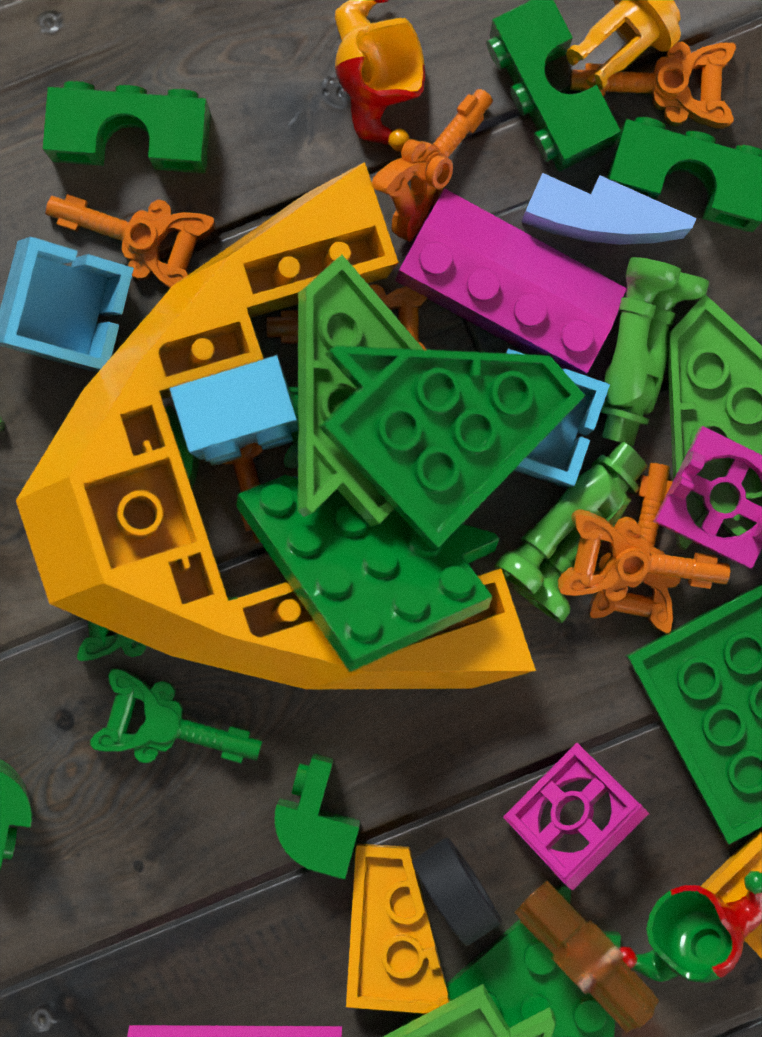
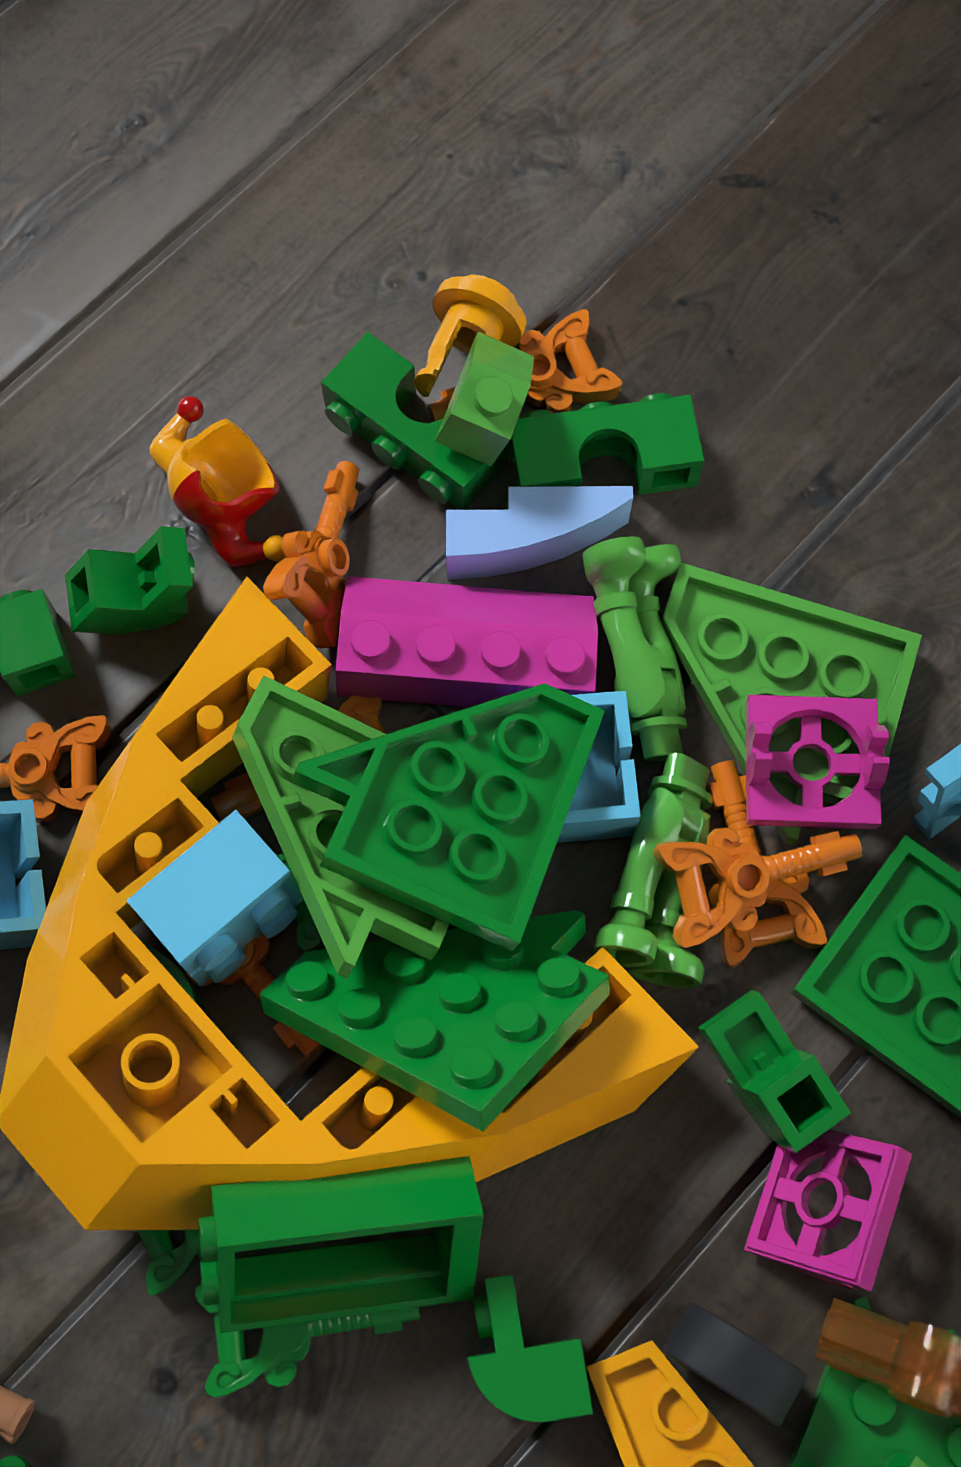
camera: 25 degrees left, 15 degrees down
(222, 692) = (345, 1277): none -> green window
(274, 124) = (131, 590): none -> green brick
(580, 710) = (770, 1077): none -> green brick
(616, 97) = (486, 400): none -> bright green slope

